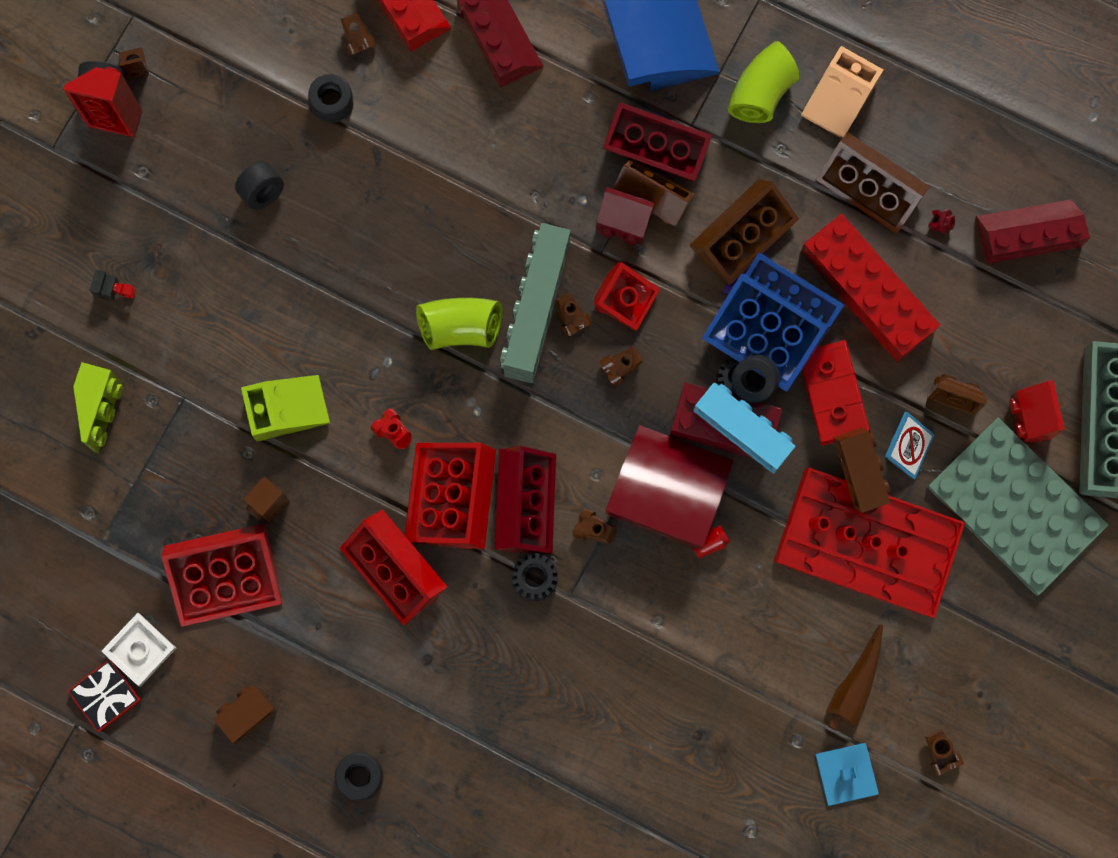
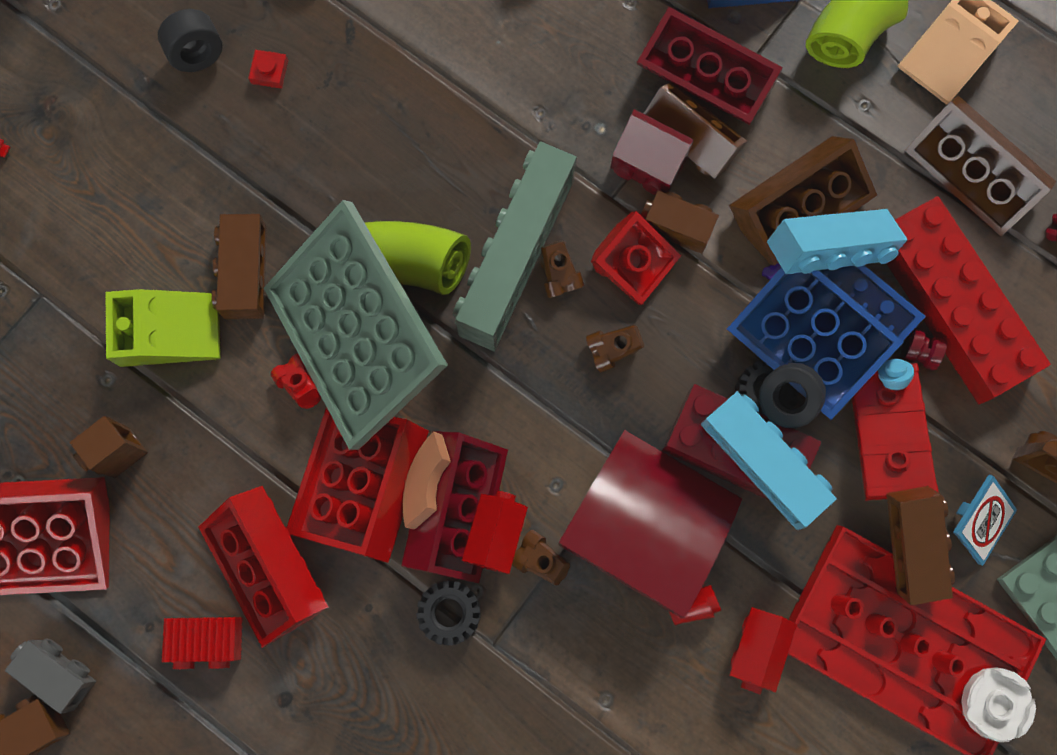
camera: 10 degrees right, 0 degrees up
(256, 669) = (50, 674): none -> dark grey brick
(320, 196) = (268, 69): none -> red plate
(332, 352) = (240, 266): none -> reddish brown brick
(360, 626) = (202, 640): none -> red brick
(428, 381) = (353, 326): none -> sand green plate
(499, 485) = (422, 481): none -> nougat tile
(558, 514) = (495, 532): none -> red brick
(654, 262) = (680, 221): none -> reddish brown brick
(763, 564) = (762, 650): none -> red brick
(770, 261) = (836, 241): none -> medium azure brick
(829, 350) = (896, 374): none -> medium azure plate
(849, 329) = (924, 349): none -> dark red wheel
(935, 573) = (998, 704): none -> white tile

